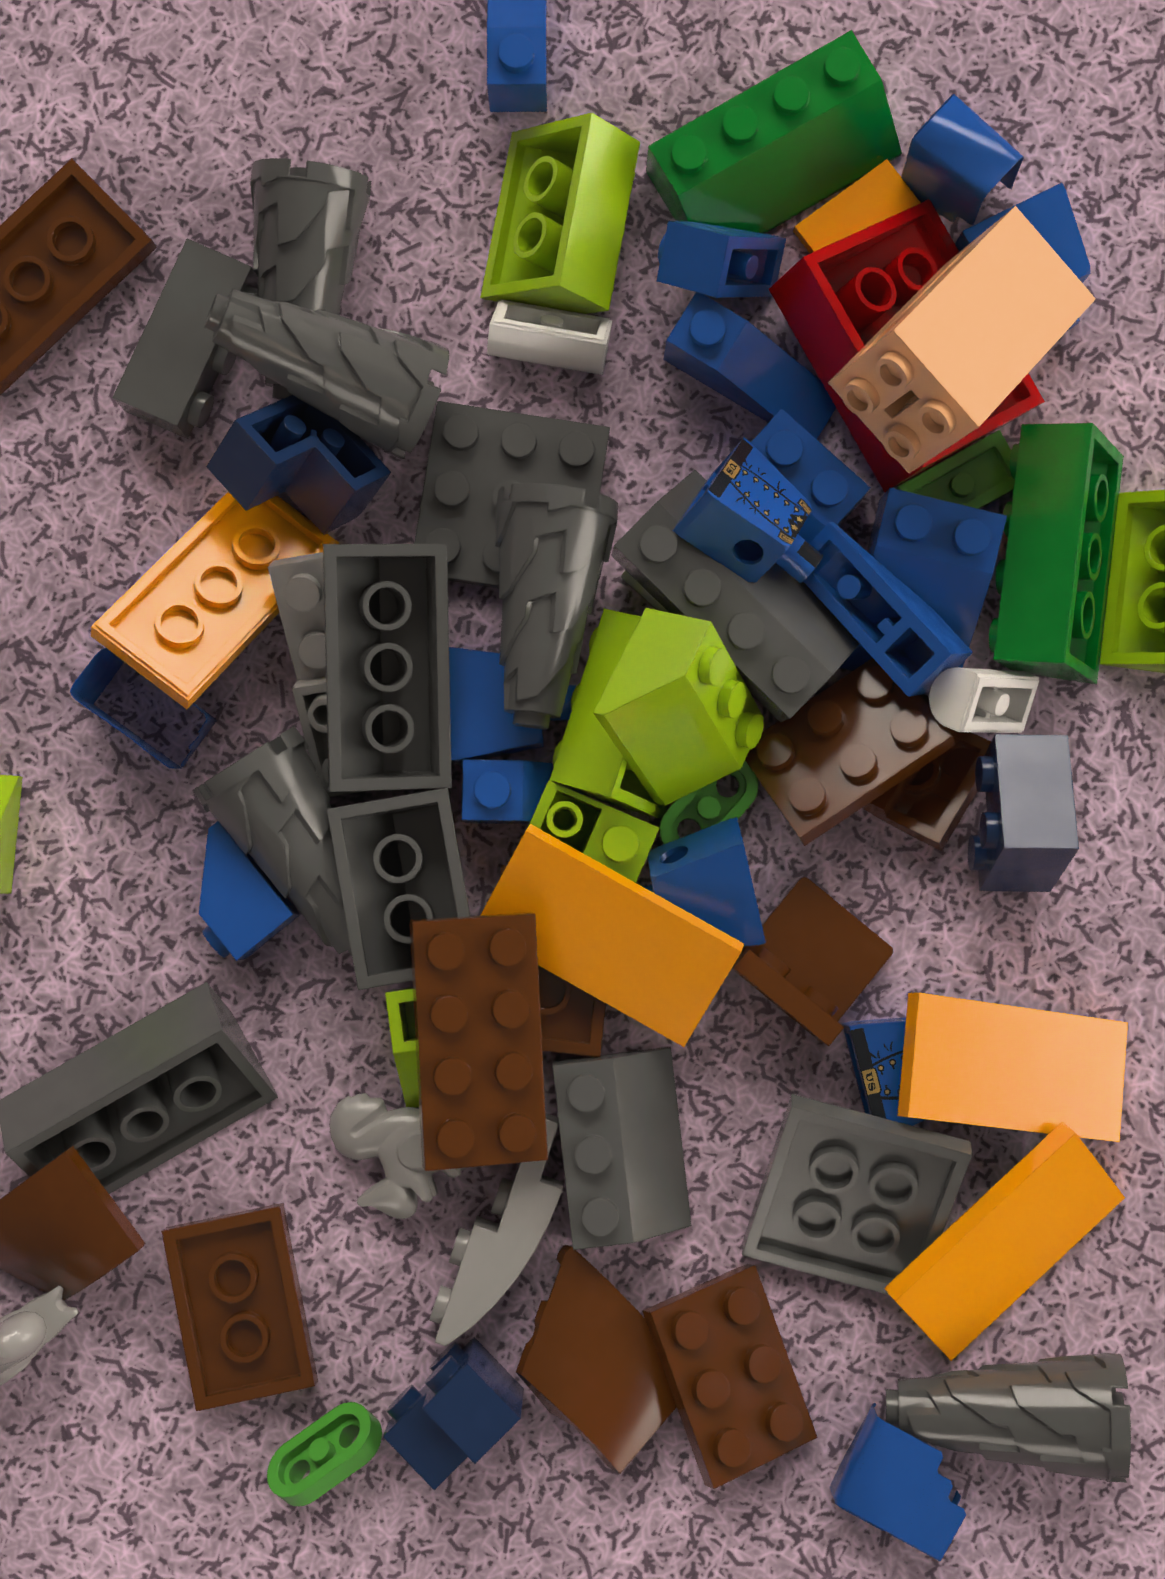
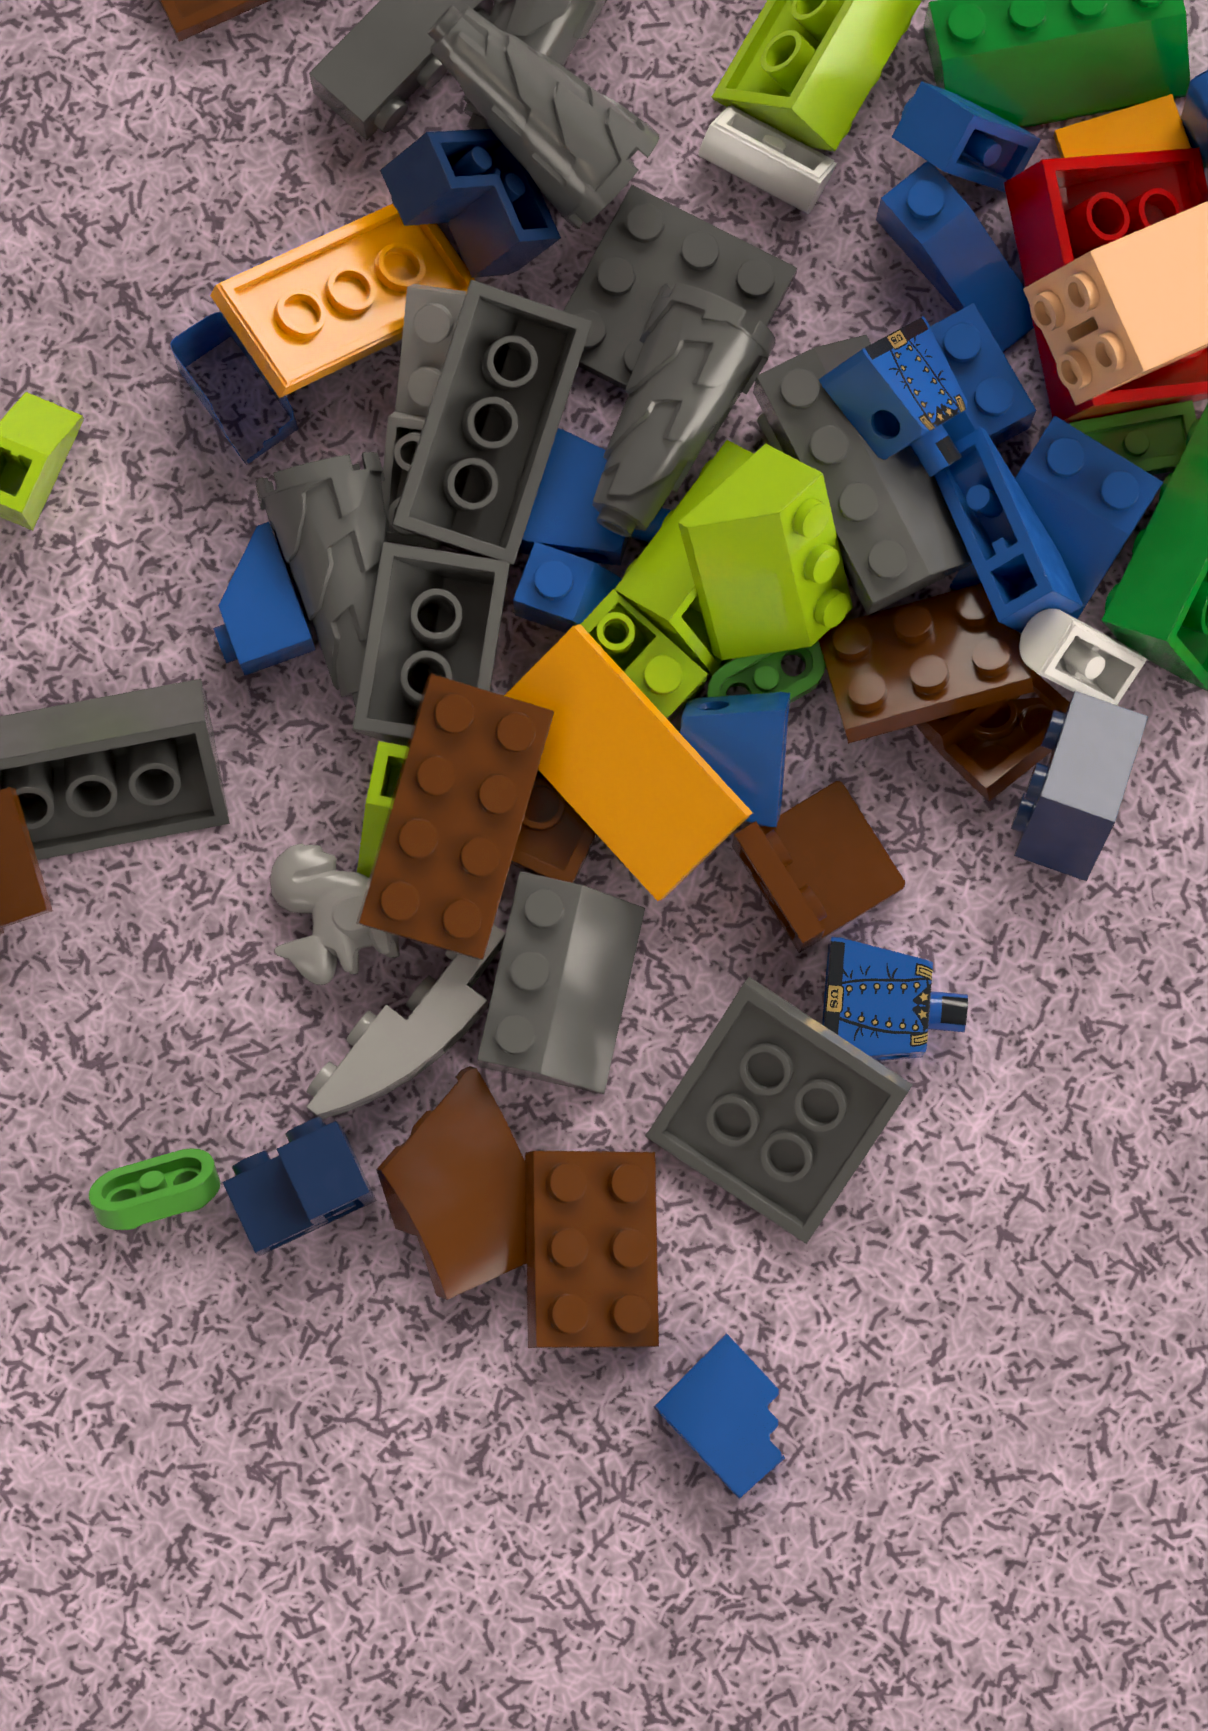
camera: 20 degrees right, 5 degrees down
(239, 1307) = (120, 1014): reddish brown plate -> none
(1005, 1241) = (917, 1209): light orange tile -> none
(1012, 1067) = (984, 1035): light orange tile -> none
(1028, 1413) = (878, 1385): dark grey cone -> none

